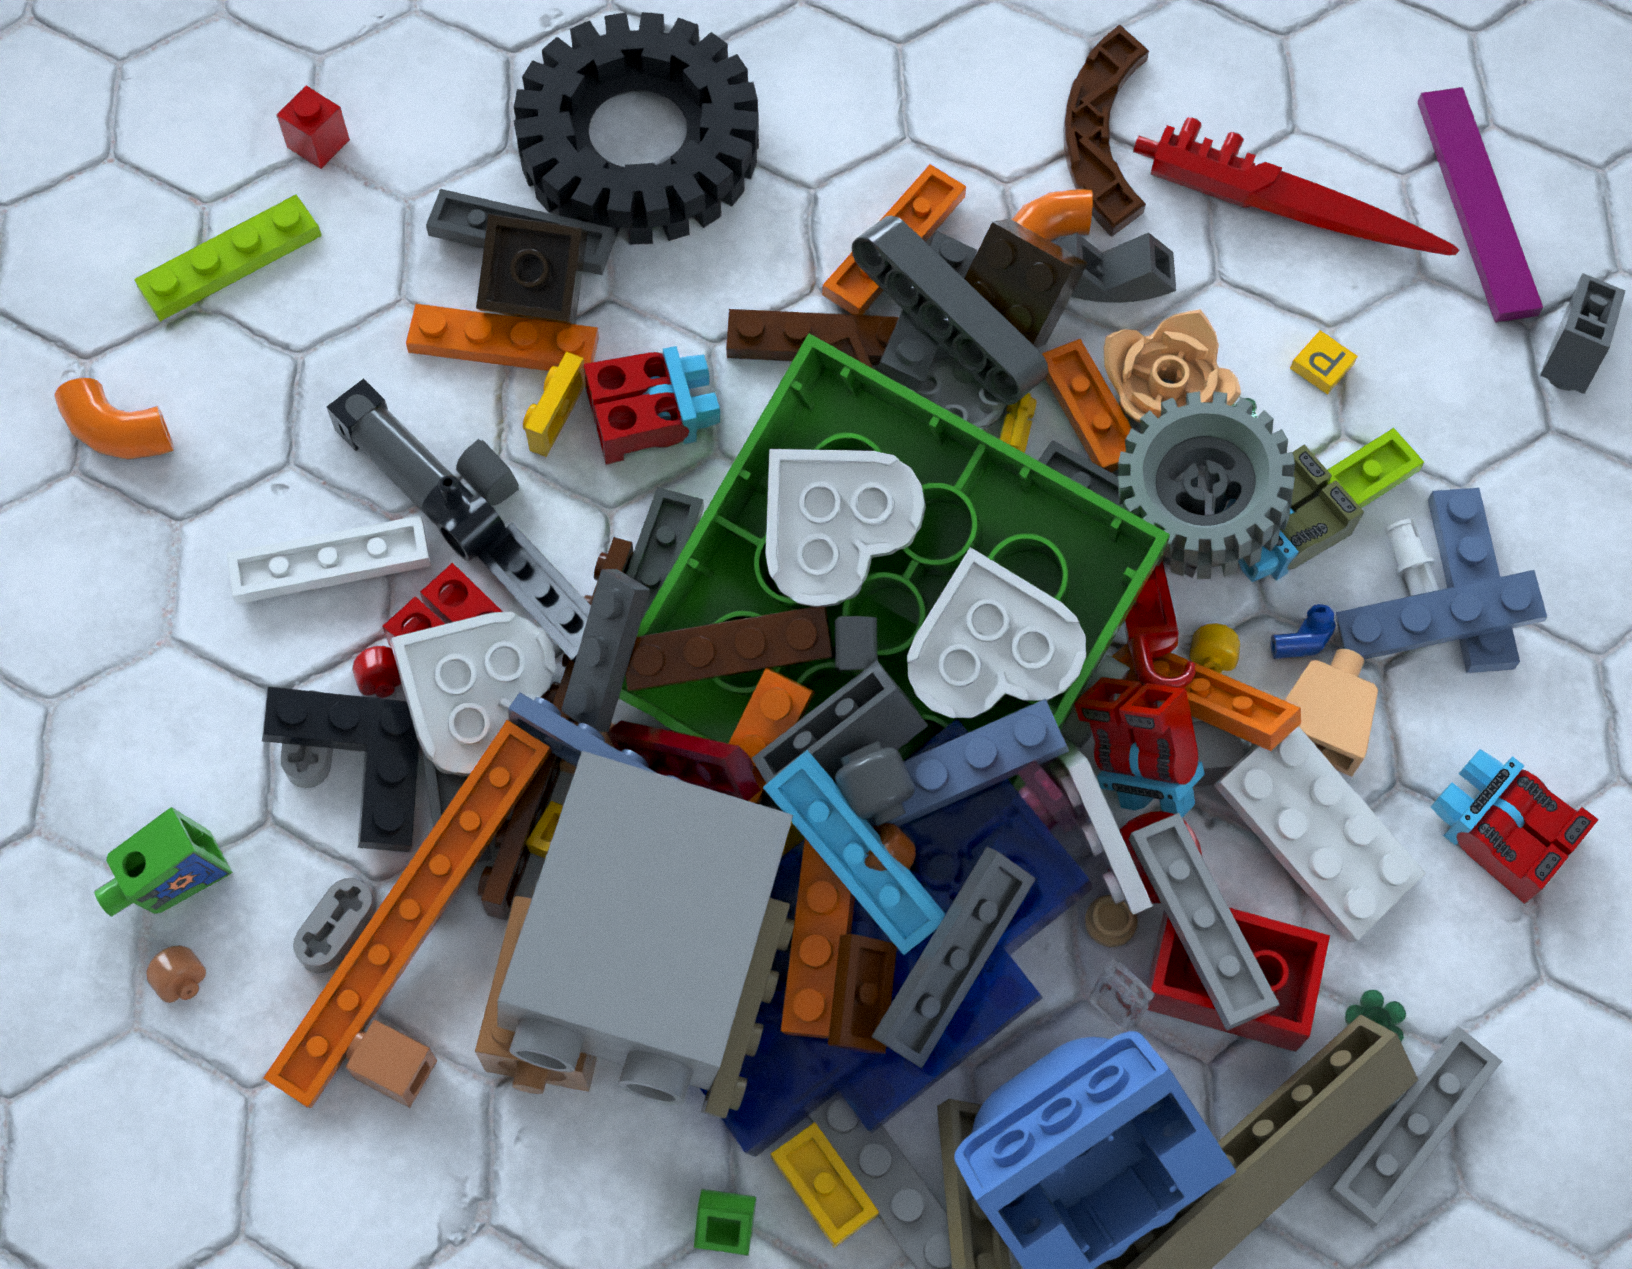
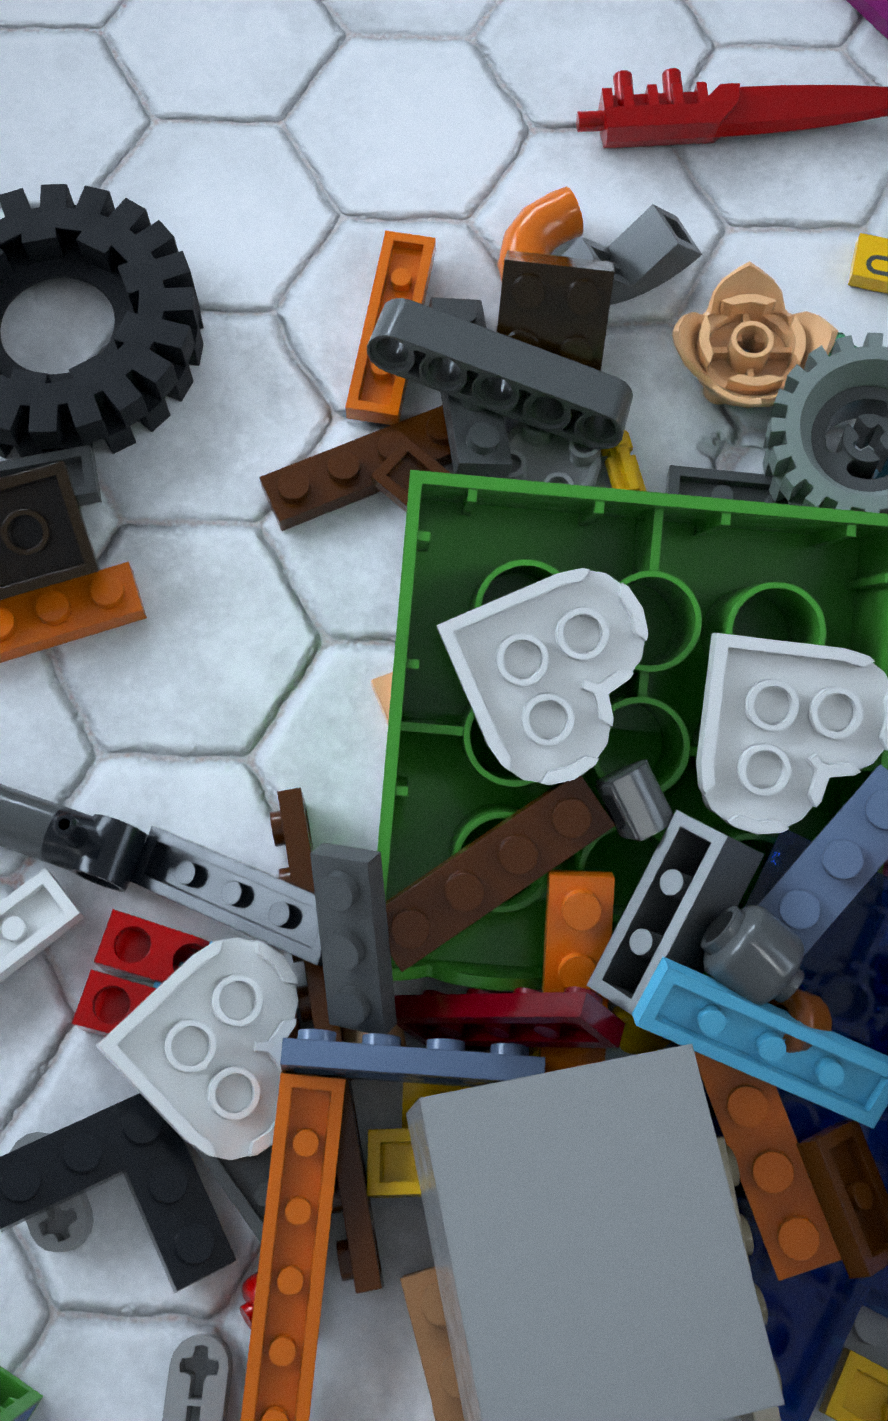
camera: 25 degrees left, 5 degrees up
(376, 671) = (85, 1070): red piece -> none
(486, 473) = (93, 783): dark grey brick -> none
(561, 392) = (126, 647): yellow plate -> none
(648, 401) = (228, 619): red hips -> none
(663, 537) = (330, 776): dark grey plate -> none
(1087, 403) = (689, 413): orange plate -> none
(1088, 133) = (519, 127): reddish brown tile -> none

